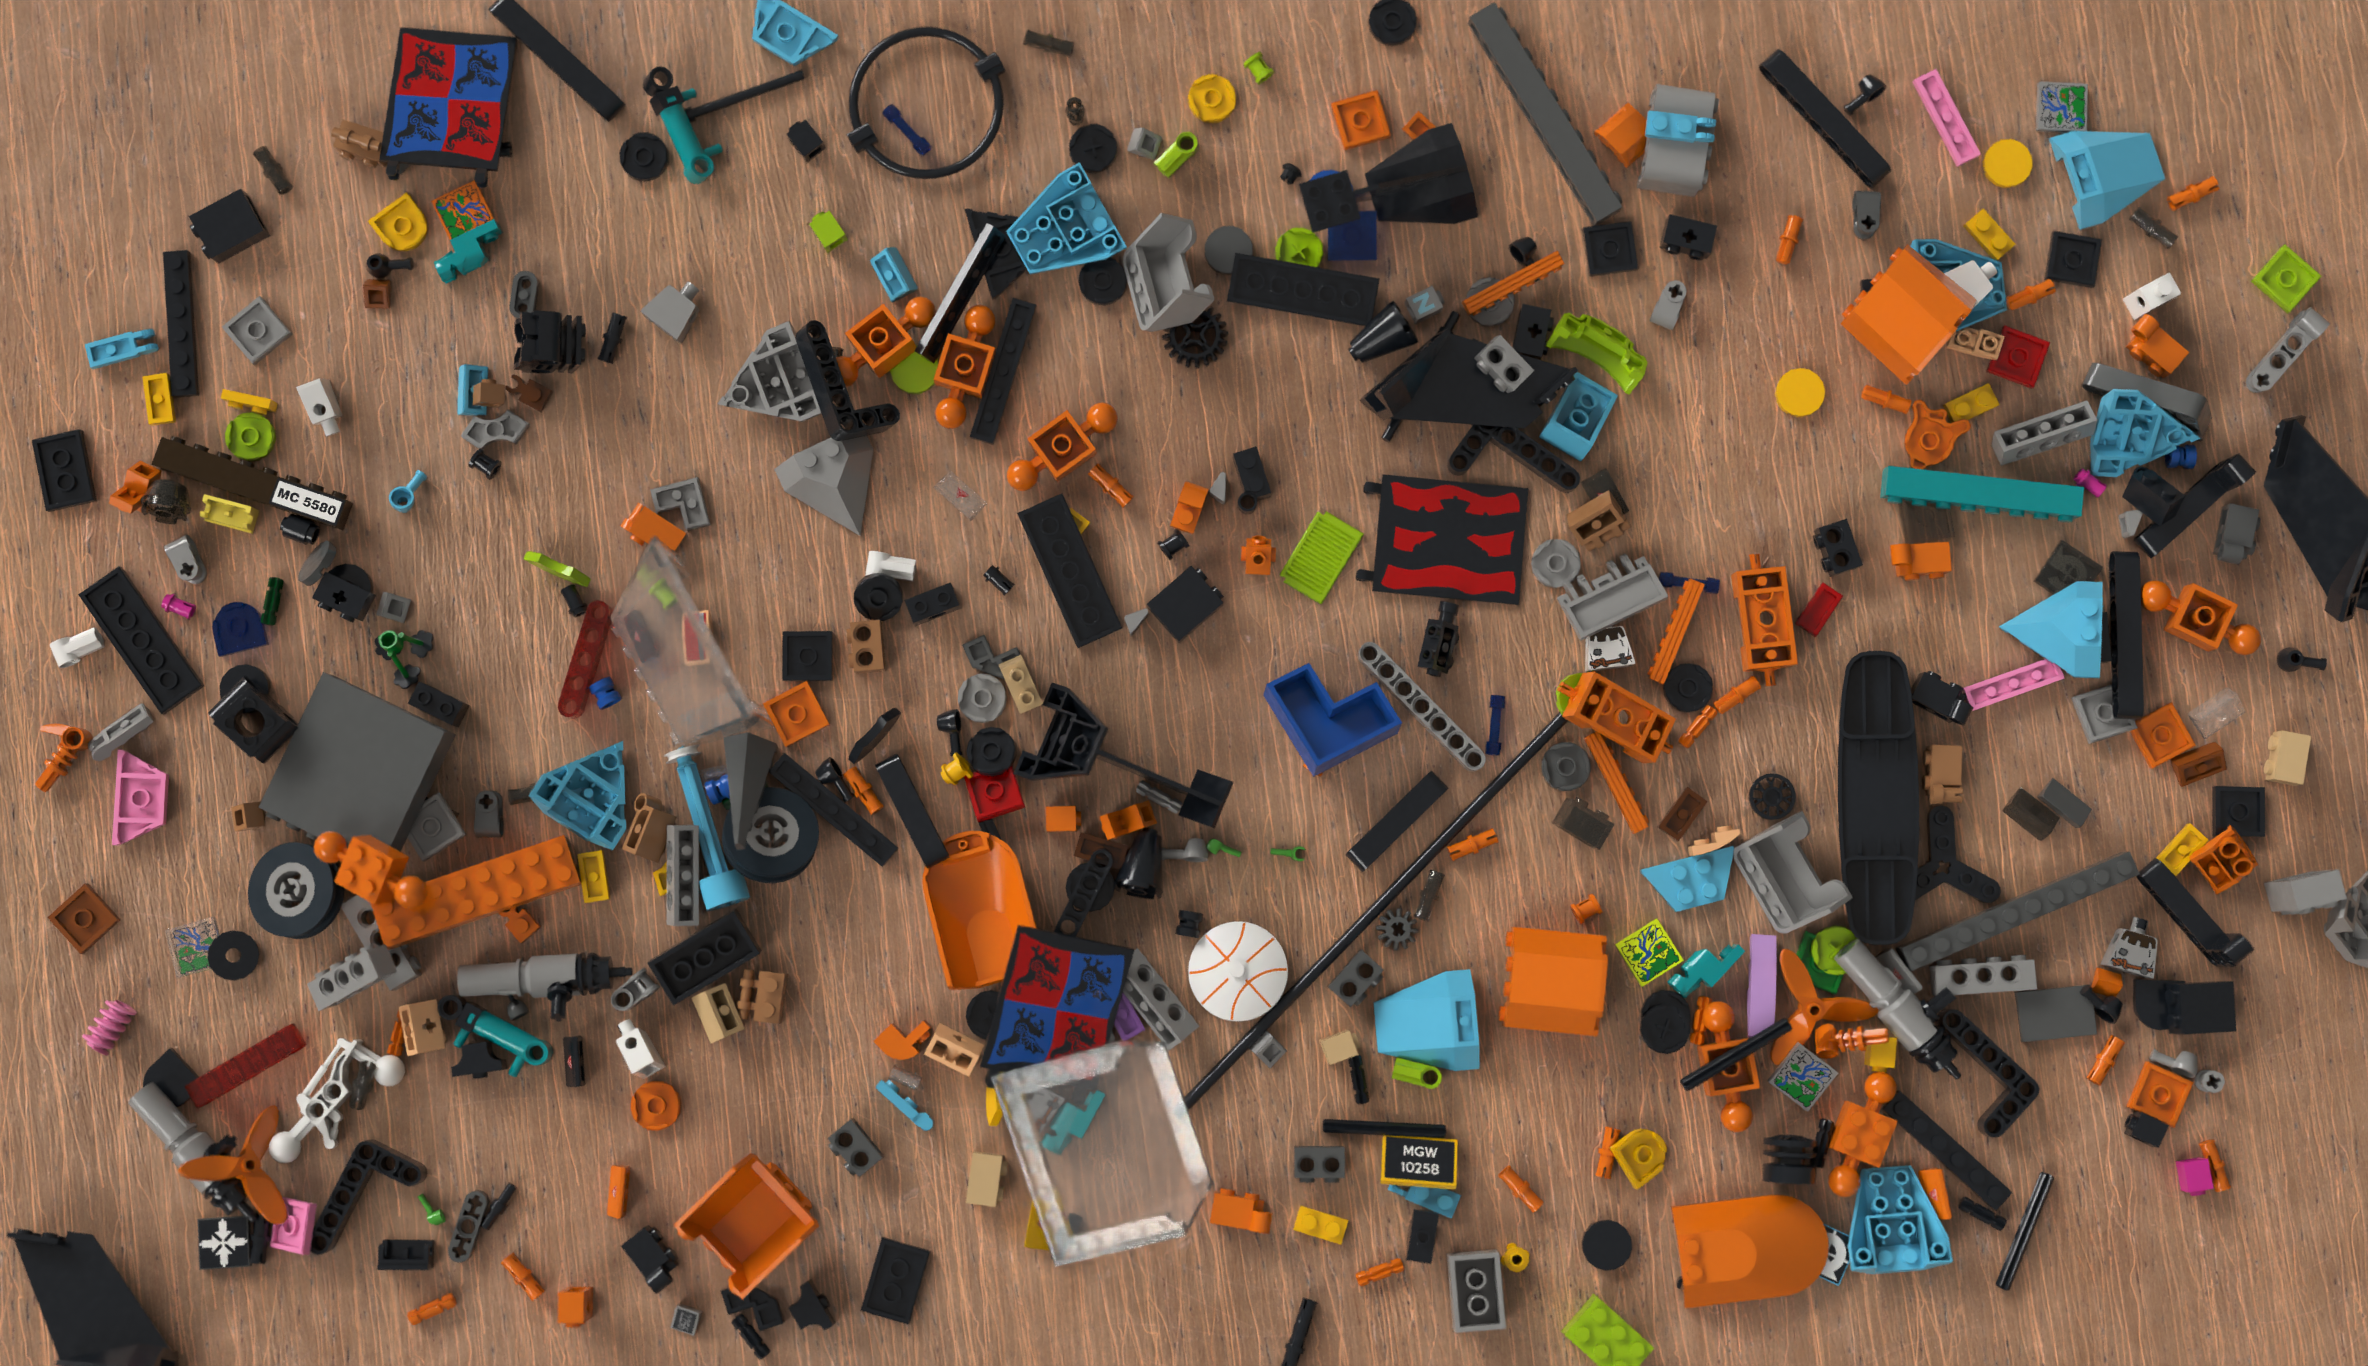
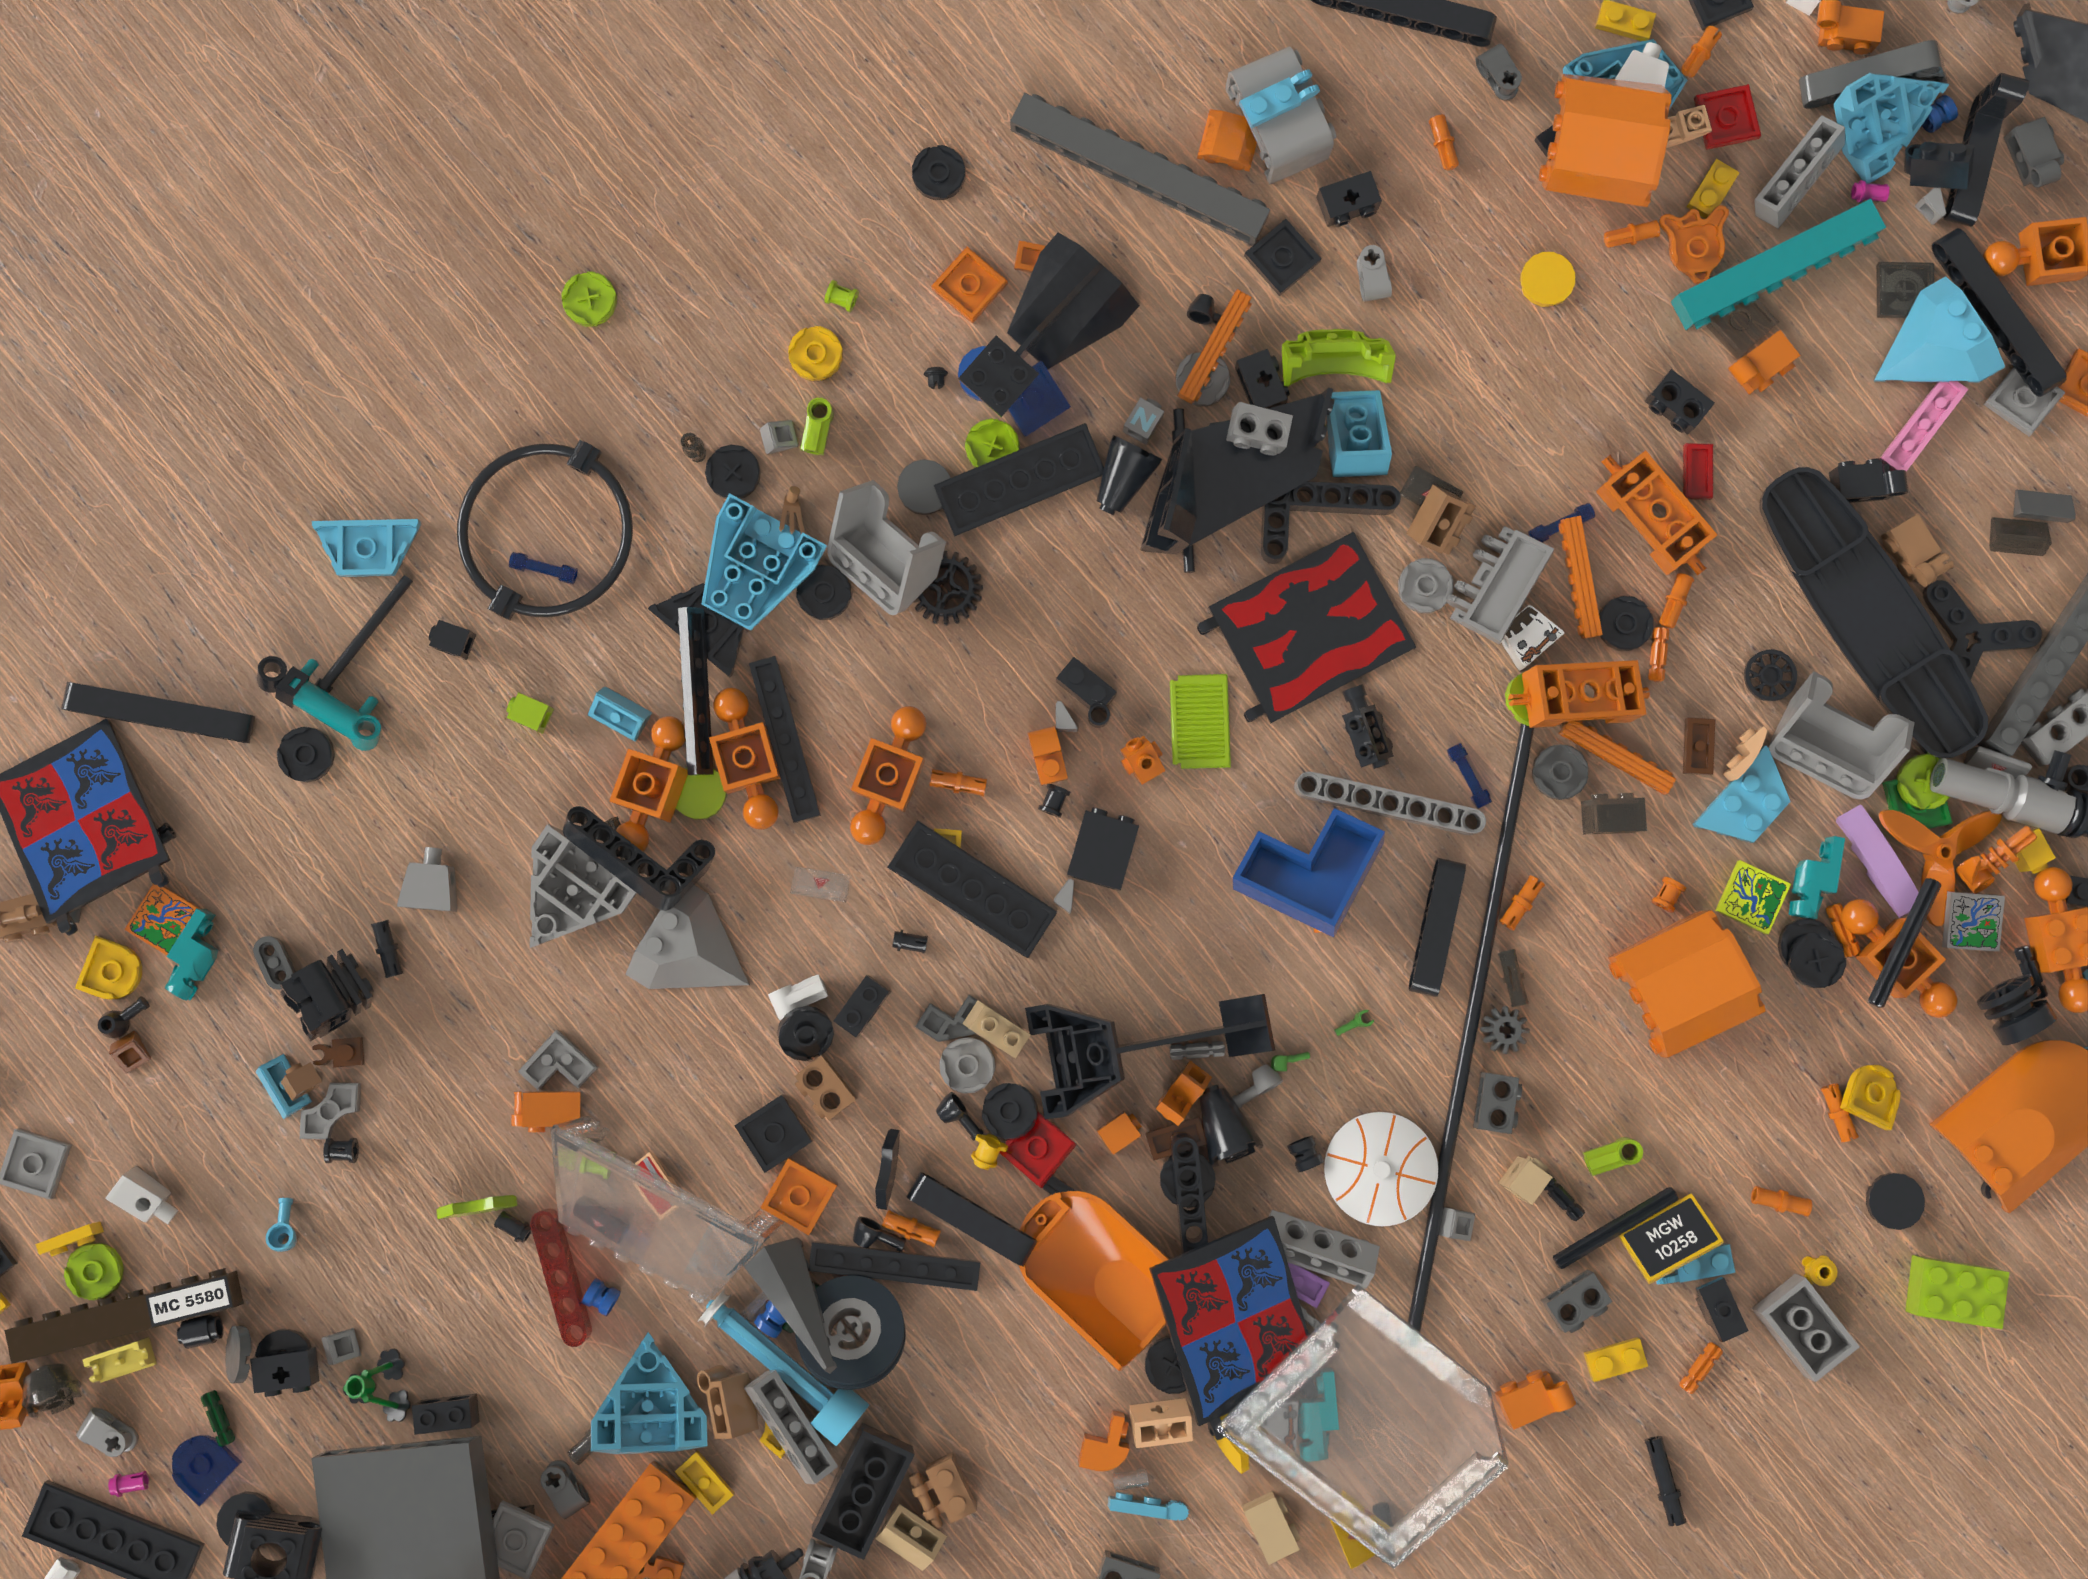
camera: 30 degrees left, 0 degrees up
(1048, 43) = (626, 399): clear smoke pin -> none
(1120, 202) = (792, 505): none -> medium nougat piece
(1431, 1022) = (1595, 1097): medium azure wedge -> none

